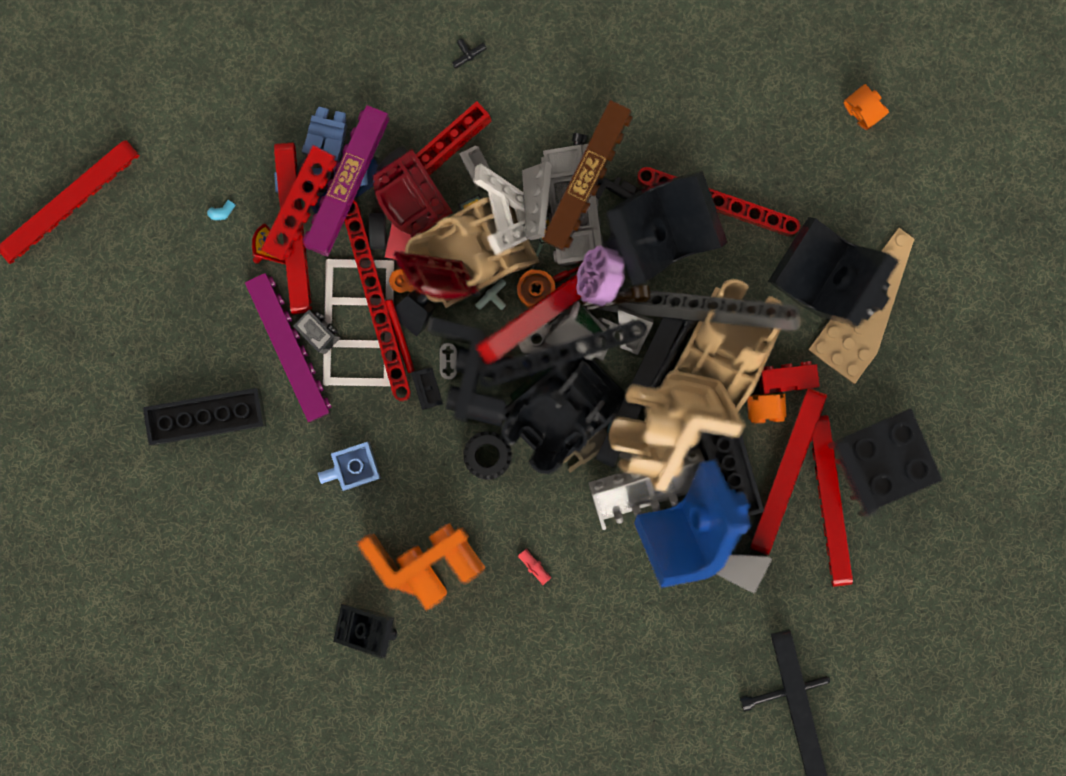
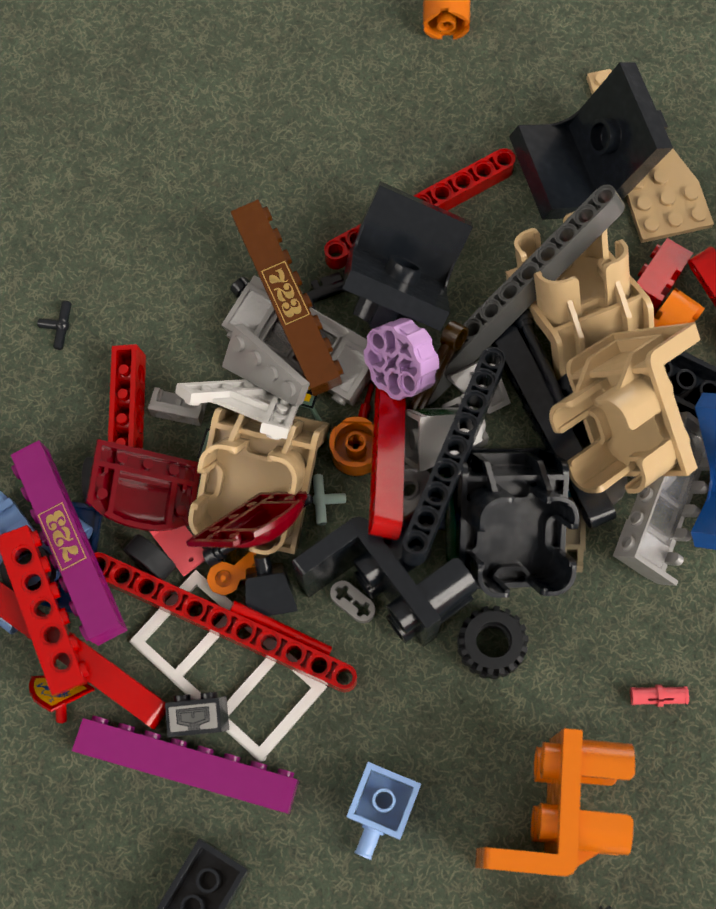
camera: 50 degrees left, 15 degrees down
(427, 388) = (362, 649): black hinge -> none

